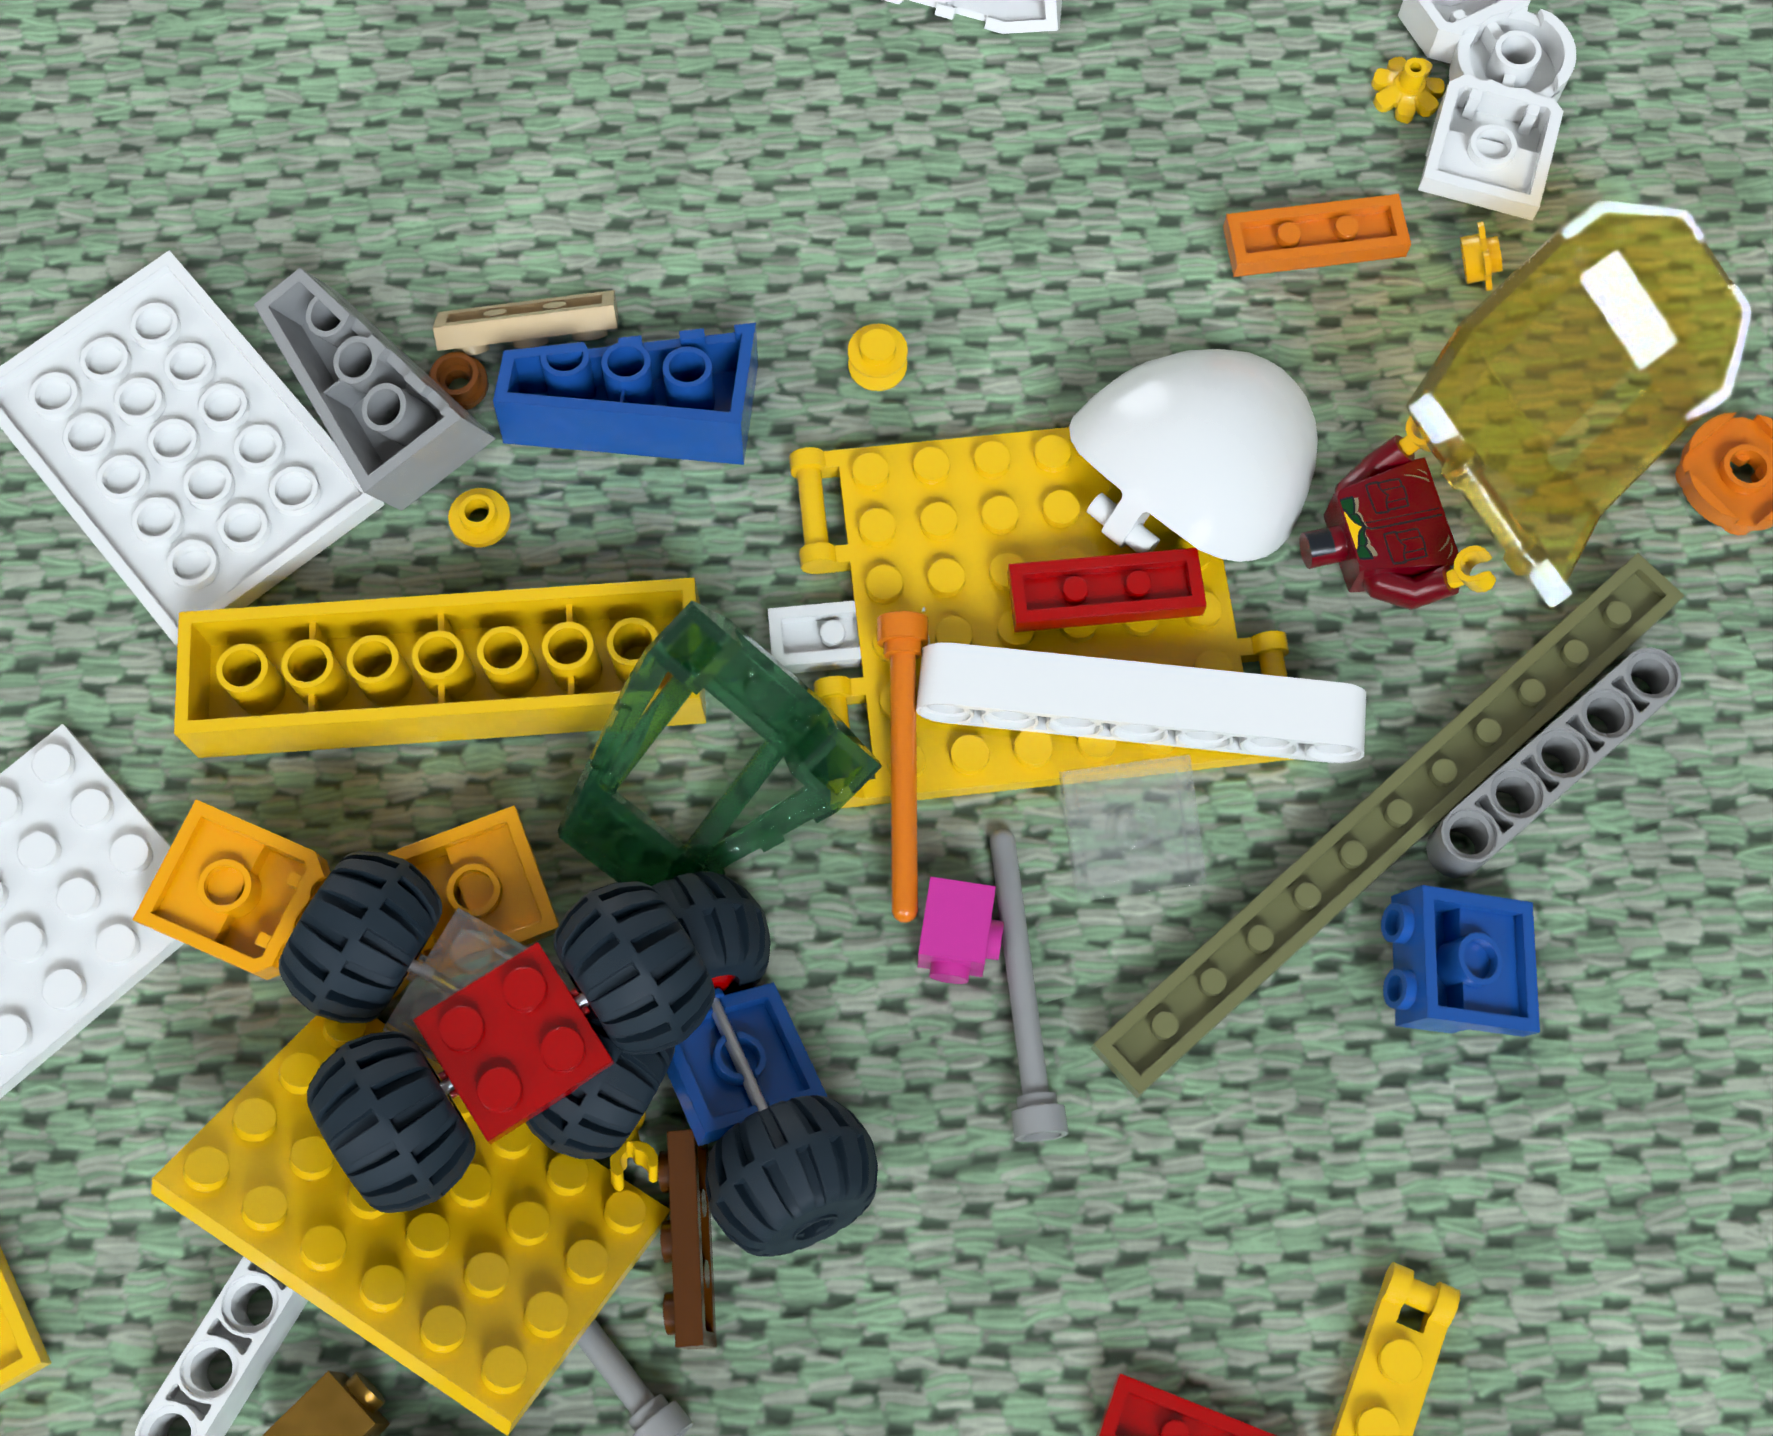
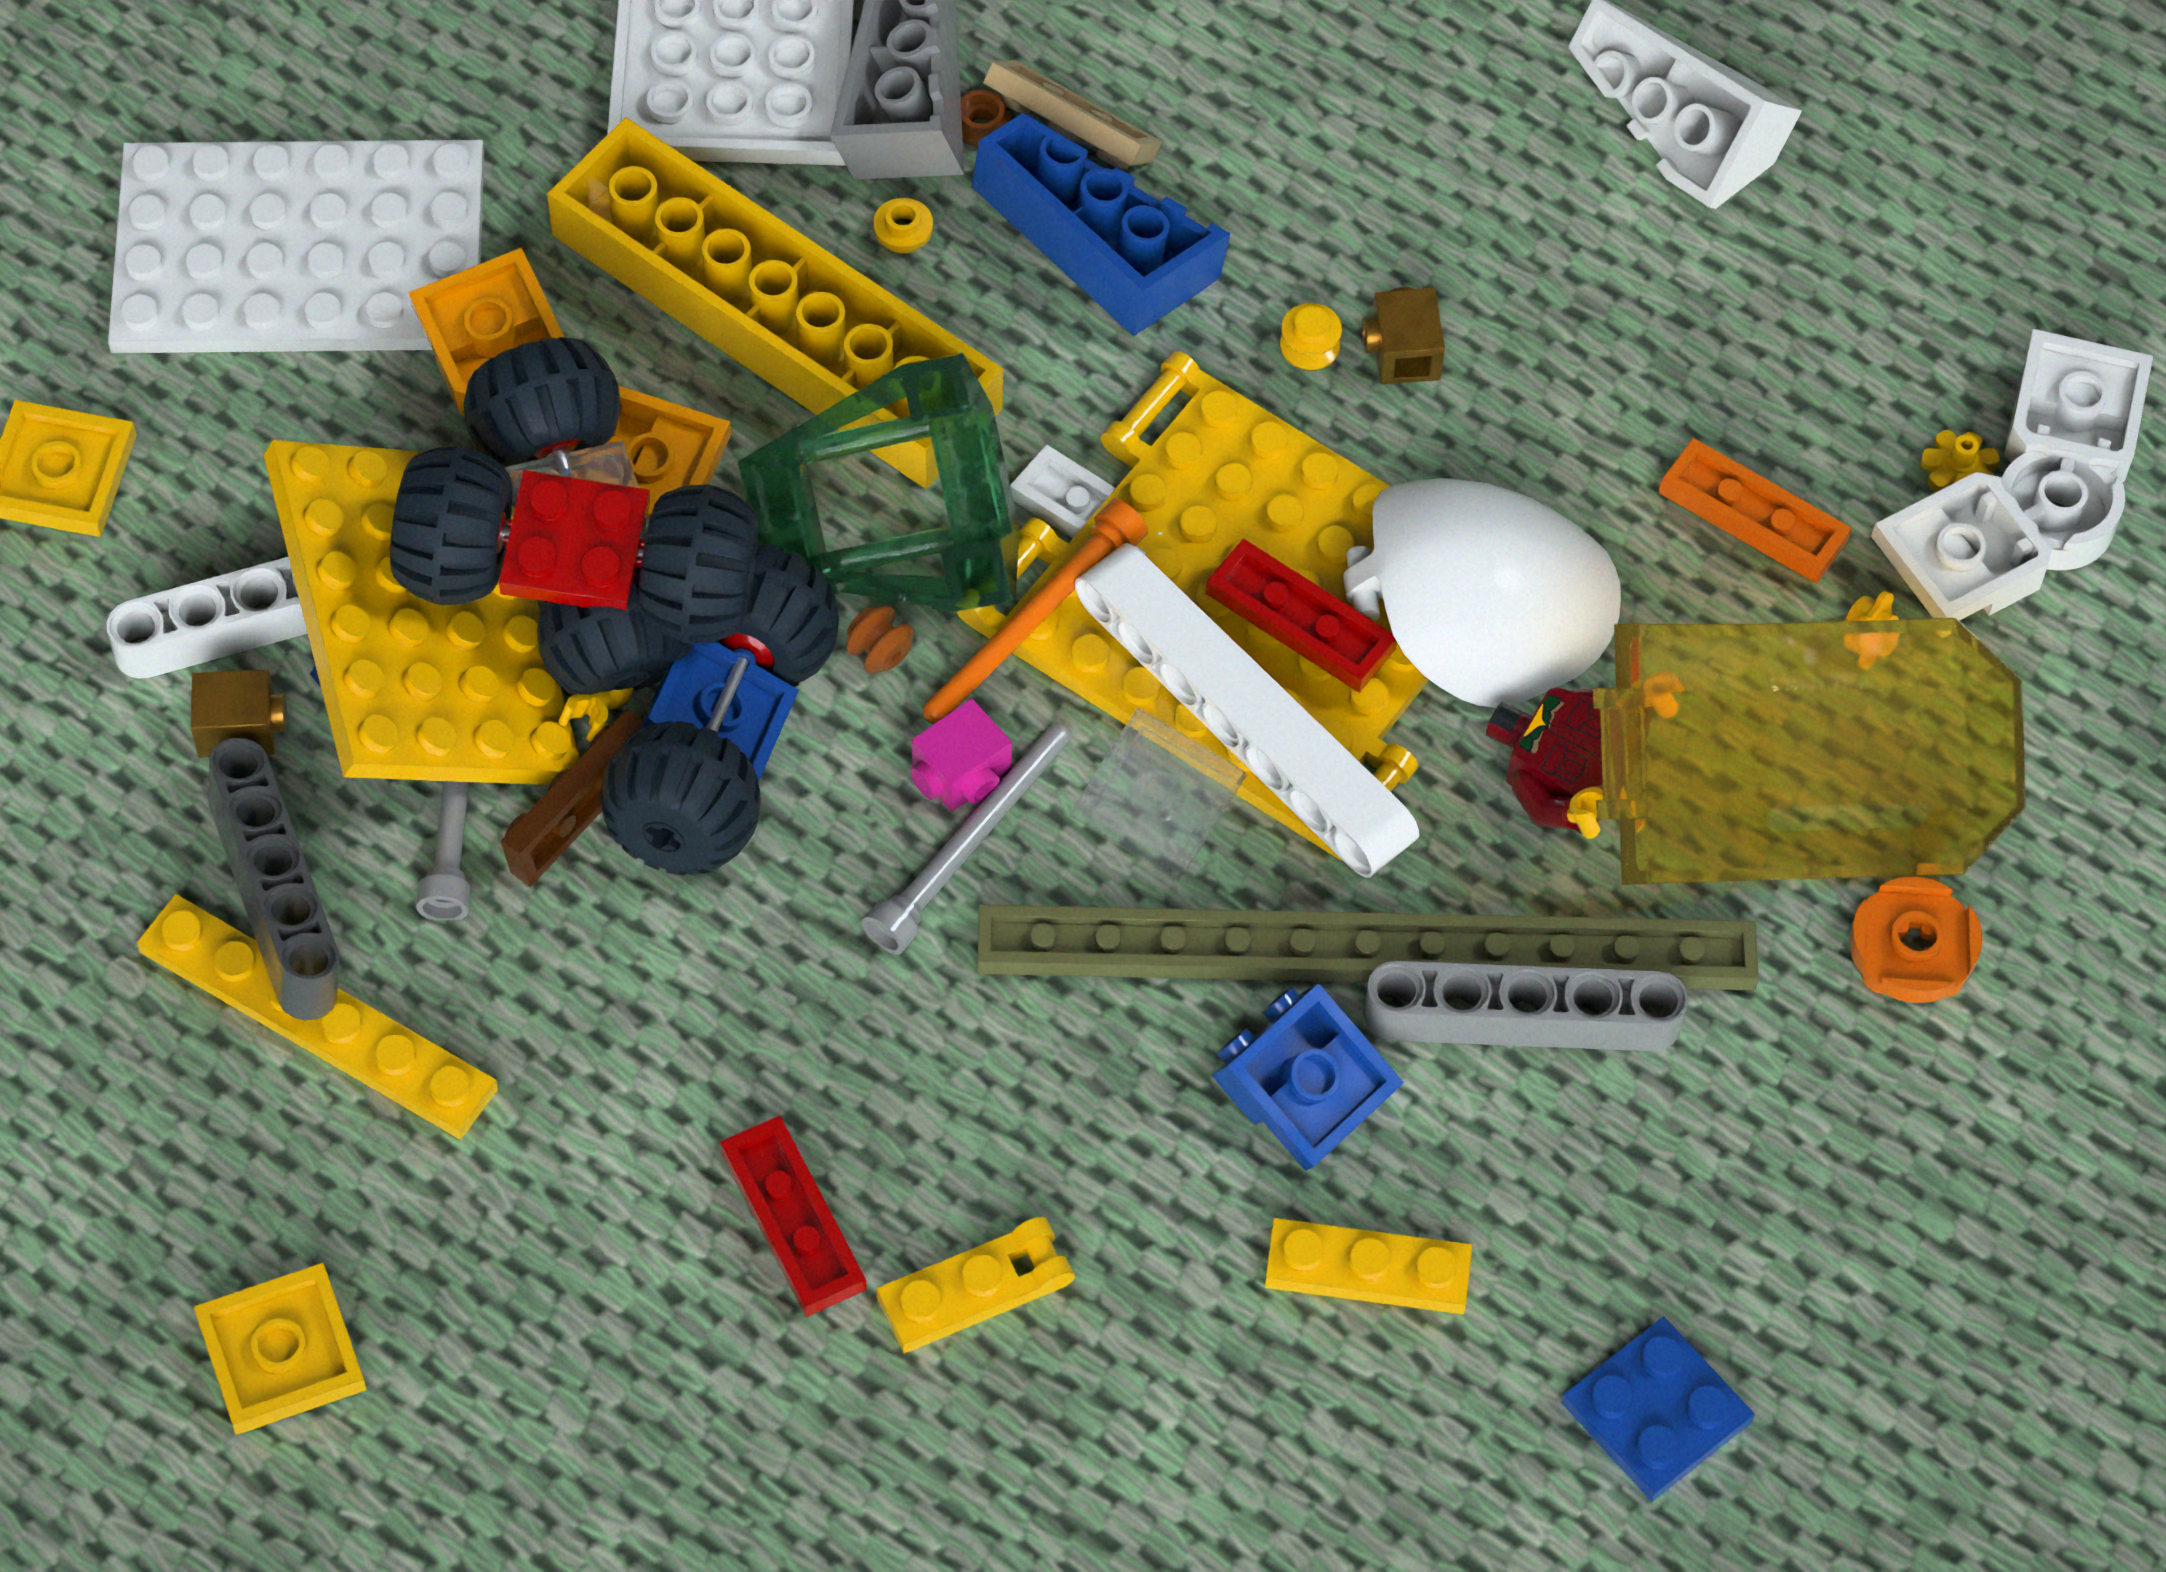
camera: 40 degrees right, 10 degrees down
(797, 883) = (874, 633): none -> dark orange wheel
(948, 299) = (1405, 335): none -> pearl gold brick
(1645, 1075) = (1368, 1266): none -> yellow plate

